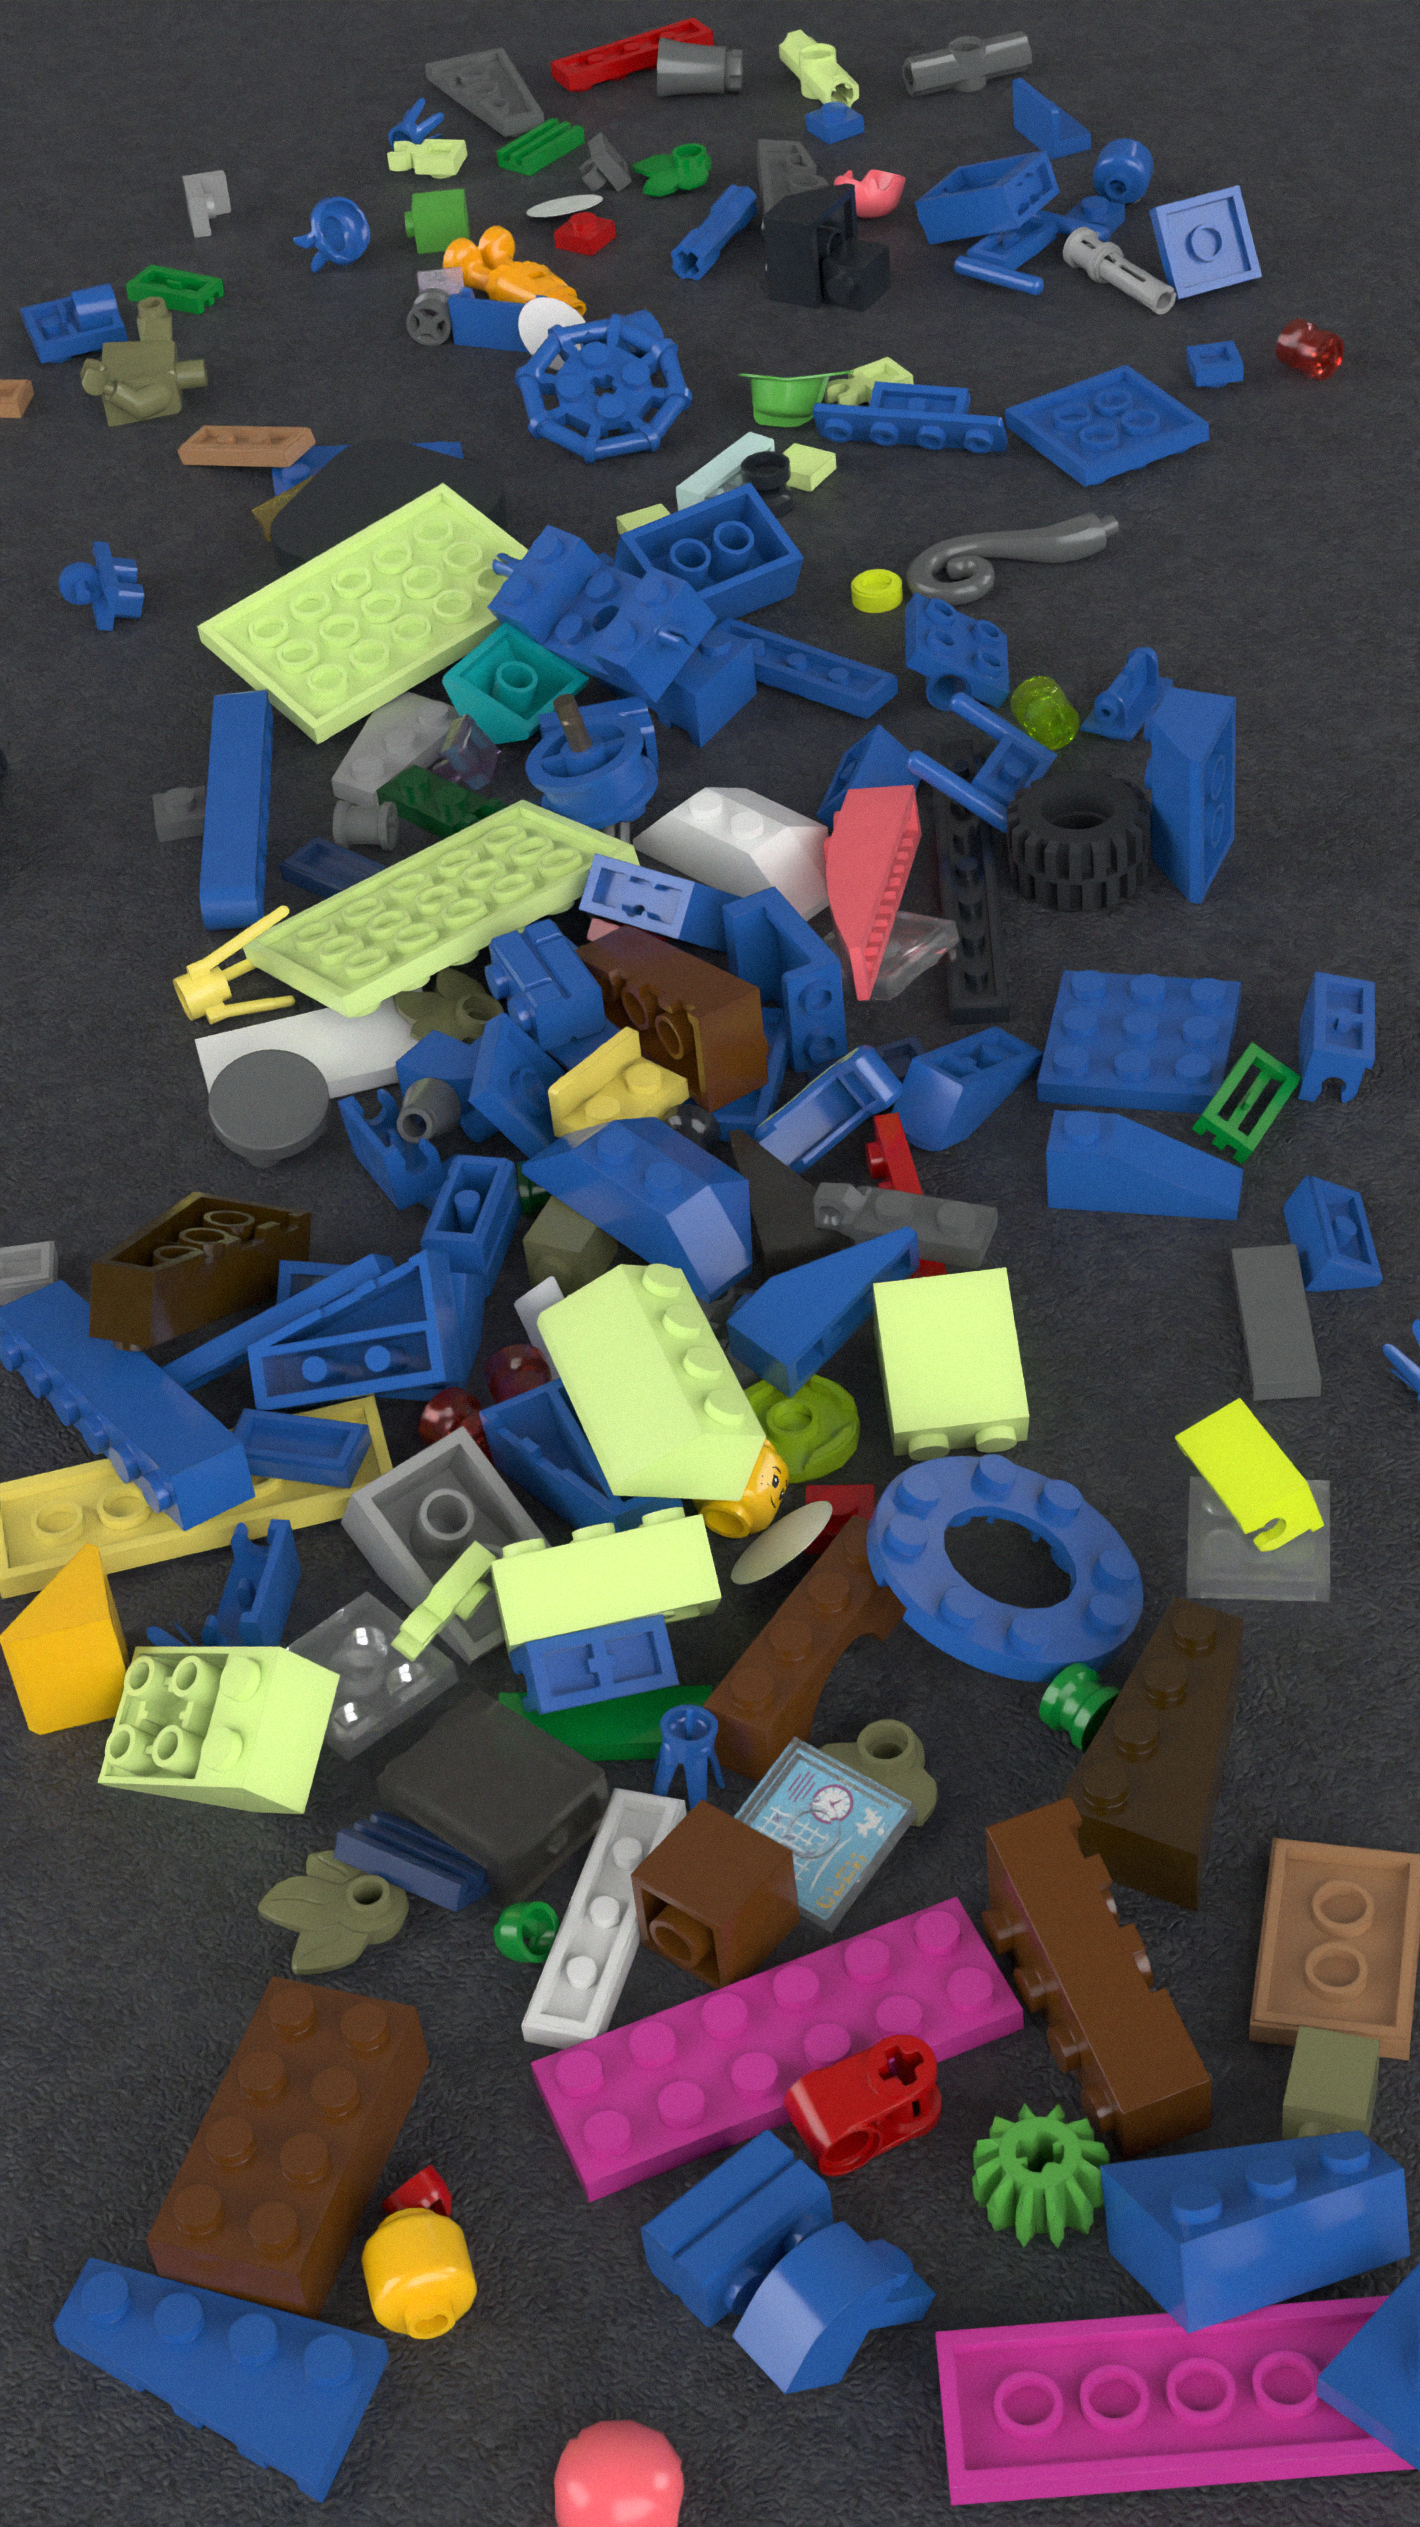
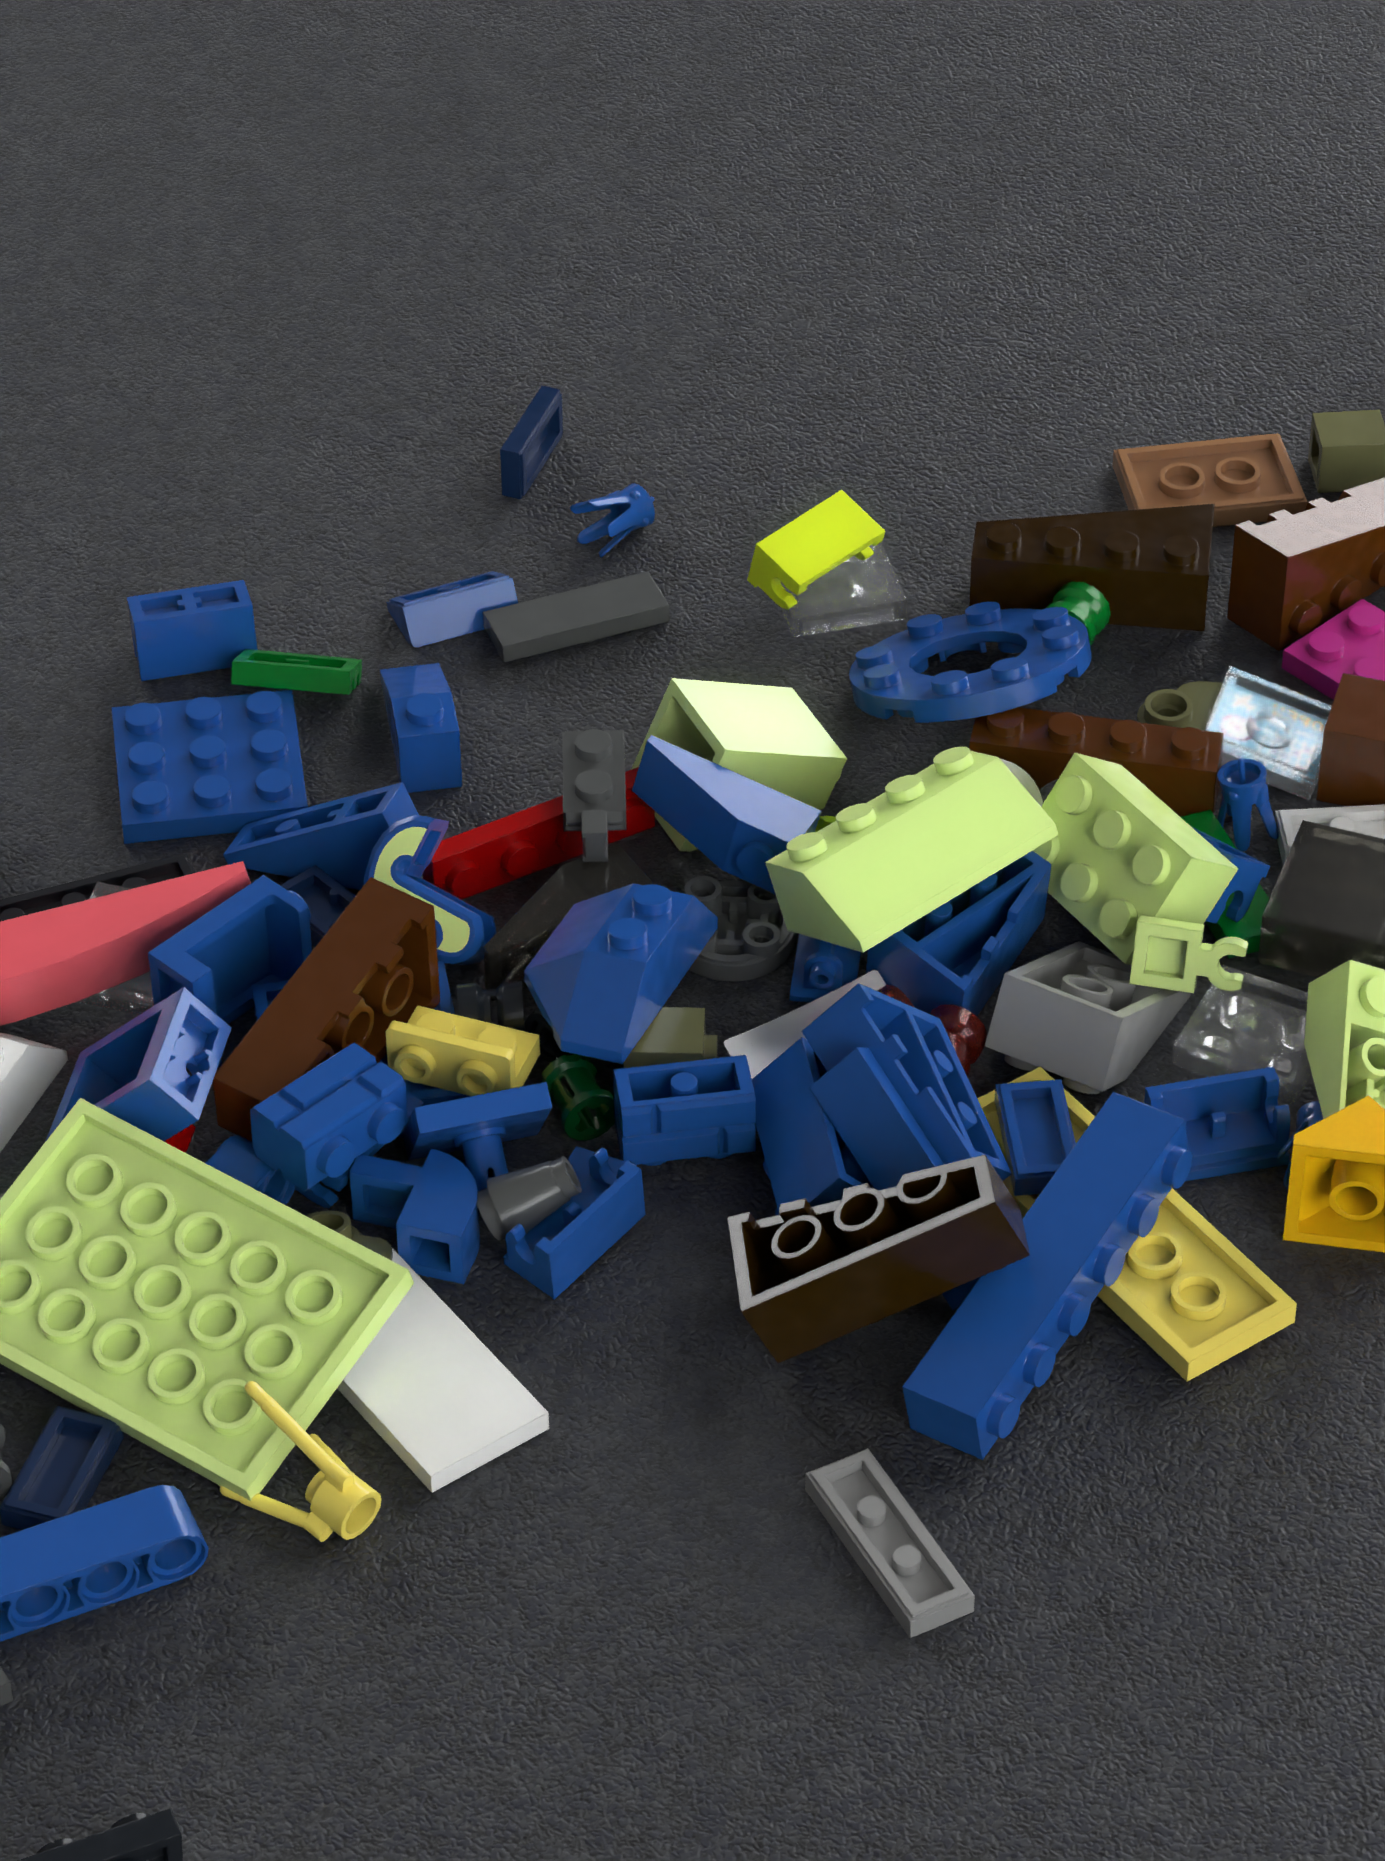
camera: 115 degrees left, 0 degrees up
(269, 1106) = (541, 1347): dark grey tile -> none

